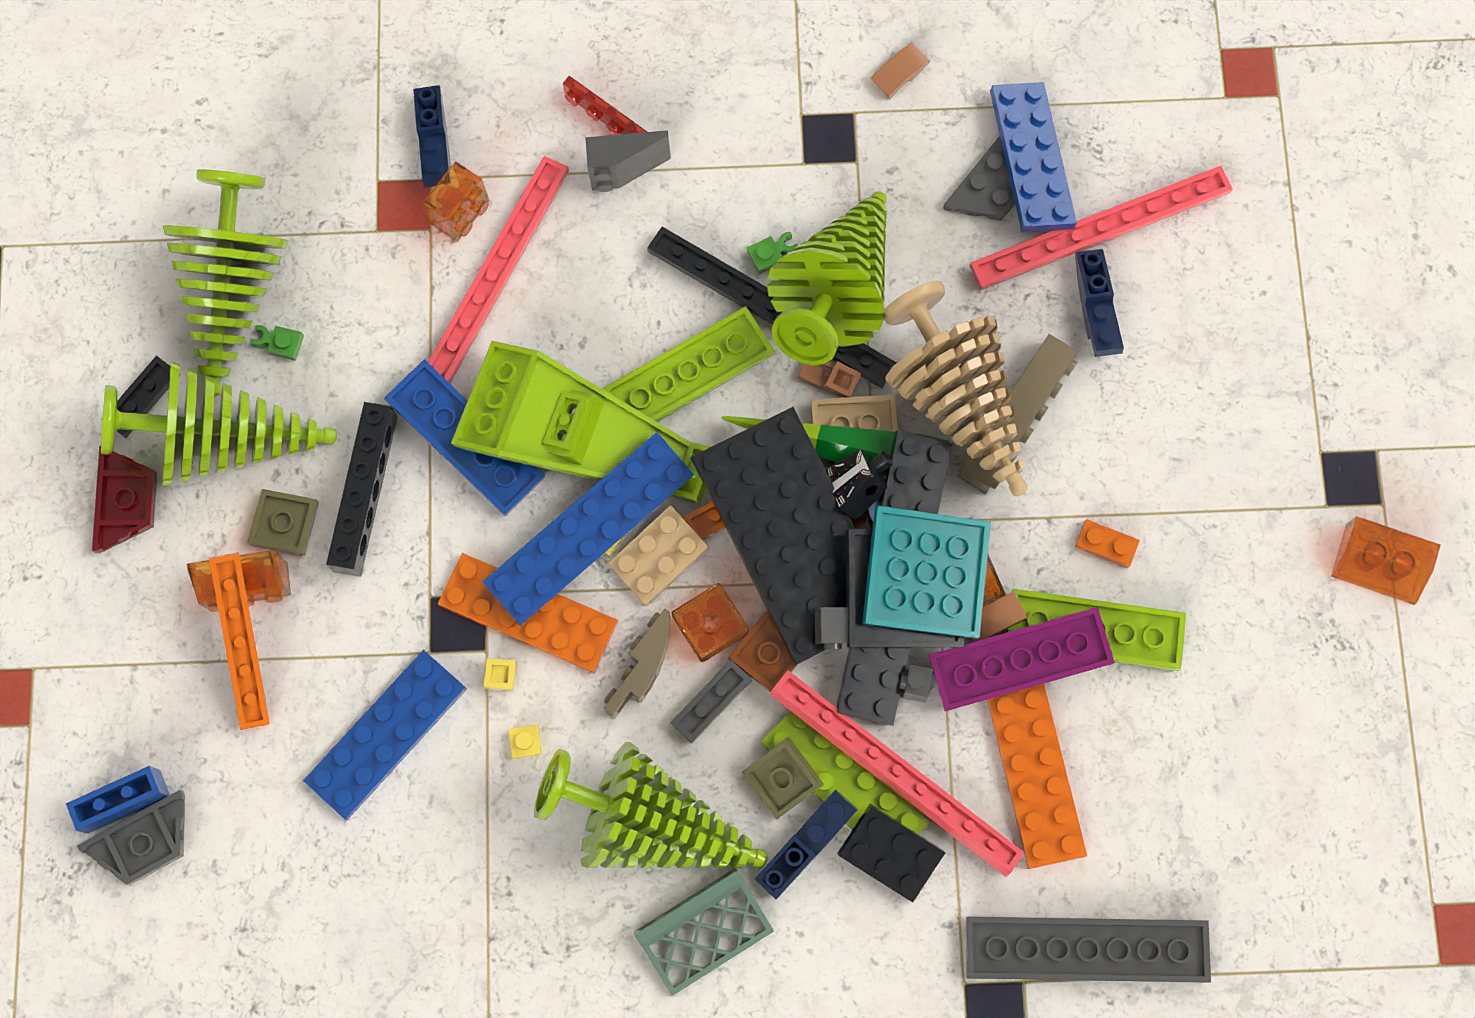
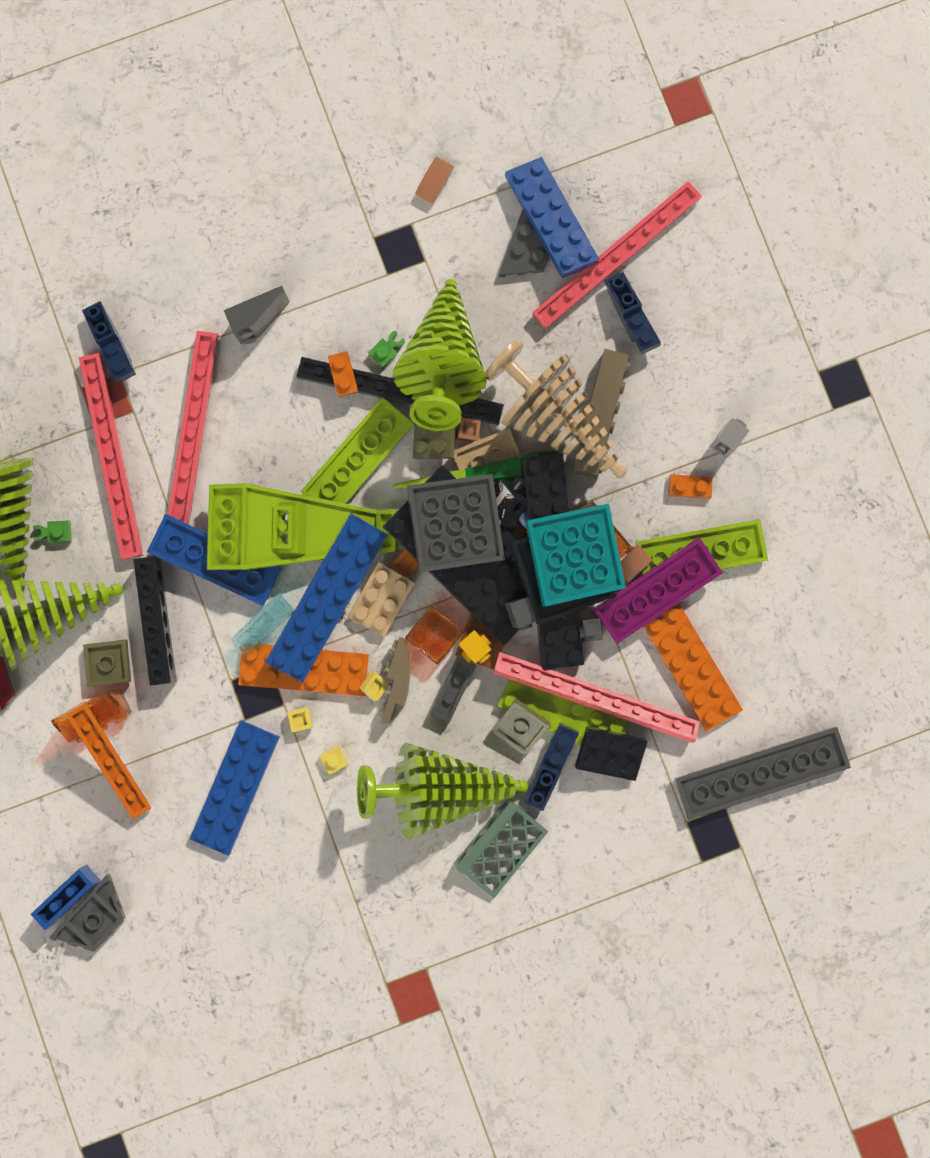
camera: 20 degrees left, 10 degrees up
(383, 274) = (111, 456): none -> coral plate
(456, 202) = (145, 387): clear orange brick -> none
(496, 535) = (263, 624): none -> clear light blue slope
(599, 109) = (226, 282): clear red plate -> none
(610, 662) = (374, 686): none -> light yellow plate
(706, 262) = (342, 374): none -> orange plate
(758, 654) = (475, 648): none -> yellow brick
(785, 482) = (455, 522): none -> dark grey plate
(792, 381) = (433, 444): none -> olive plate
(1176, 494) = (730, 437): none -> light grey brick
(1385, 560) = (885, 436): clear orange slope -> none

